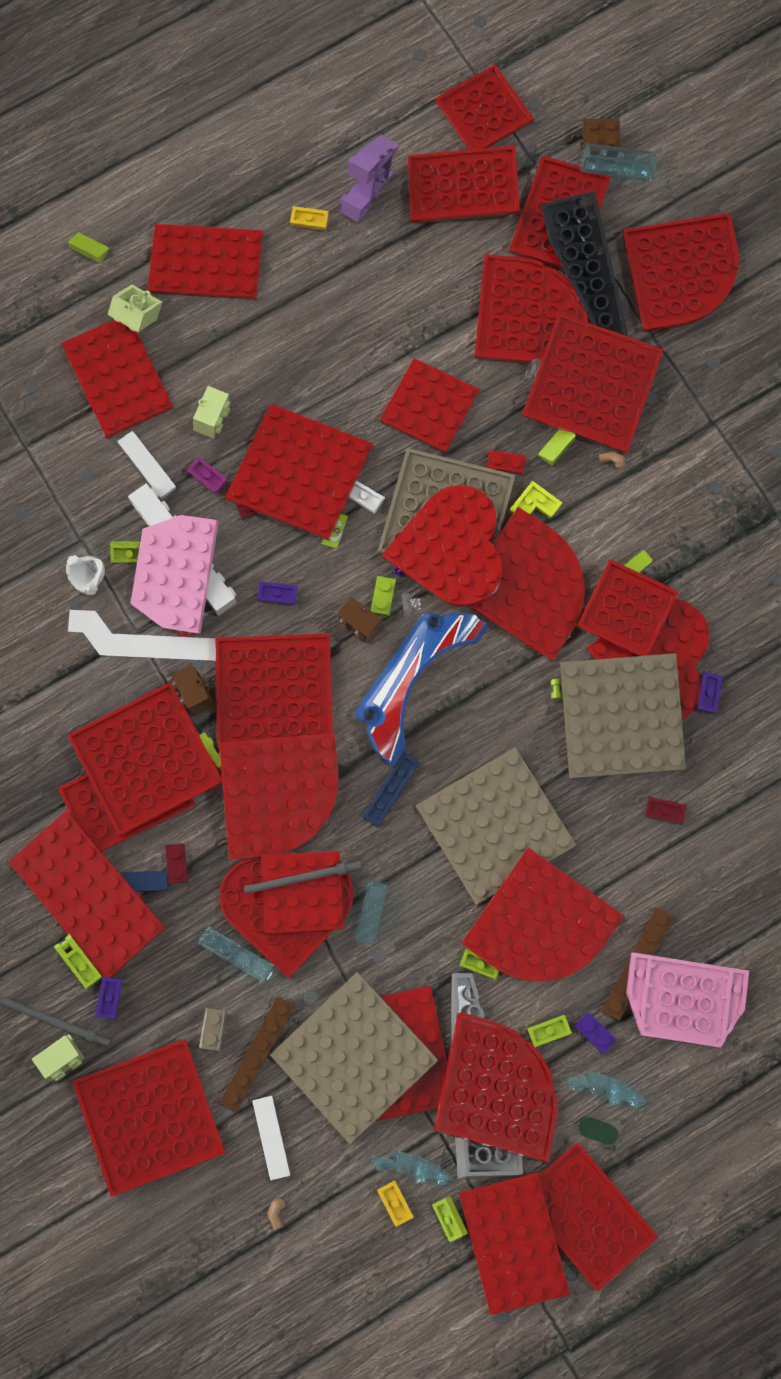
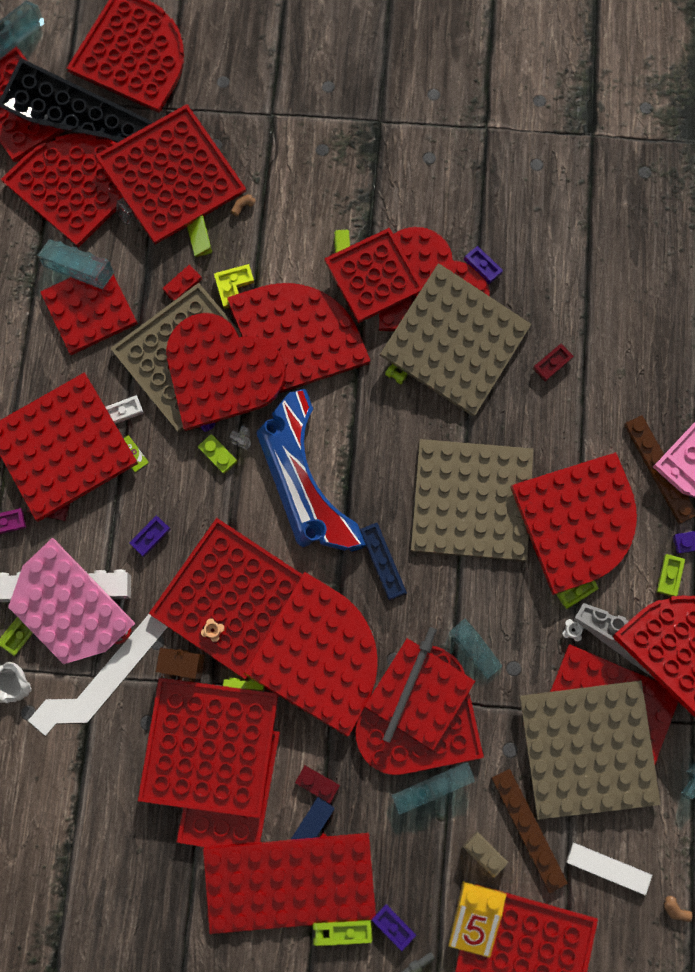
camera: 55 degrees left, 0 degrees up
(158, 1055) = (477, 919): none -> yellow slope
(237, 690) = (206, 632): none -> light nougat plate
(361, 621) = (225, 485): reddish brown brick -> none
(440, 978) = (568, 630): none -> white plate
(456, 368) = (76, 263): none -> clear light blue brick

